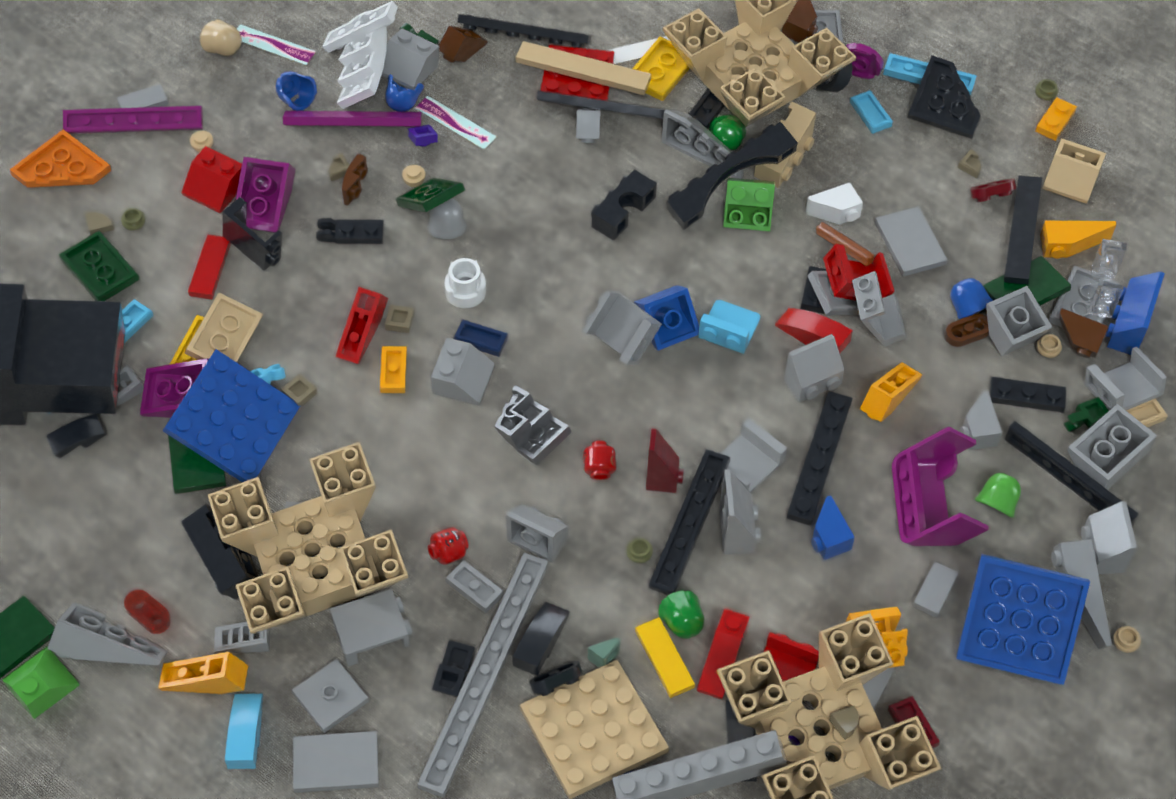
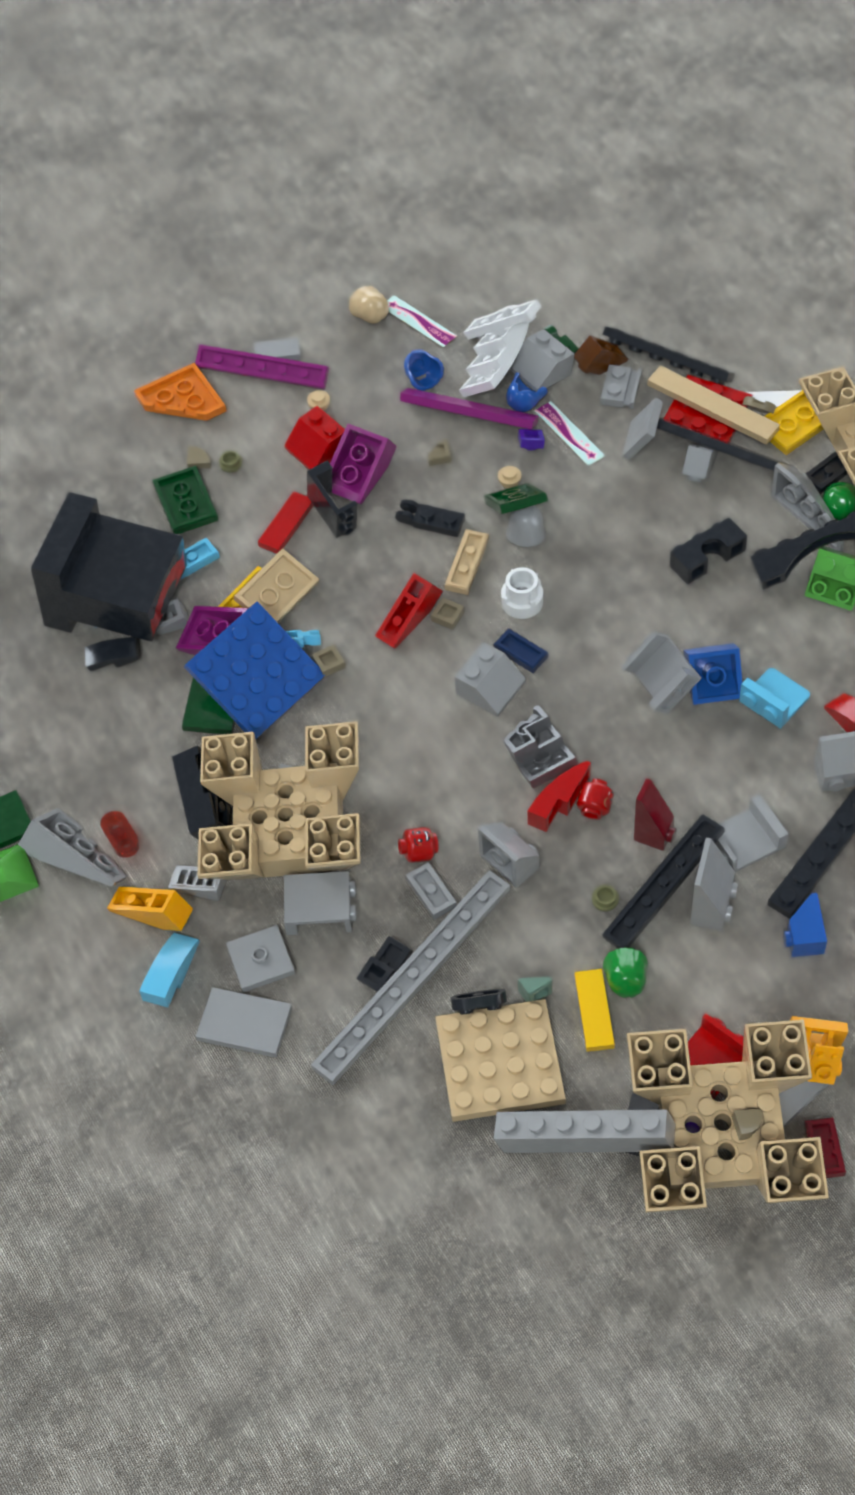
camera: 25 degrees right, 0 degrees up
(351, 183) = (445, 471): reddish brown slope -> none
(393, 369) = (424, 661): light orange plate -> none
(400, 265) = (466, 562): none -> tan tile
(489, 68) = (620, 386): none -> light grey plate
(526, 104) = (642, 429): none -> light grey tile
(540, 638) = (476, 957): black slope -> none
(564, 467) = (558, 796): none -> red slope
(632, 60) = (763, 407): none -> dark tan tile
(723, 651) = (659, 1012): red slope -> none

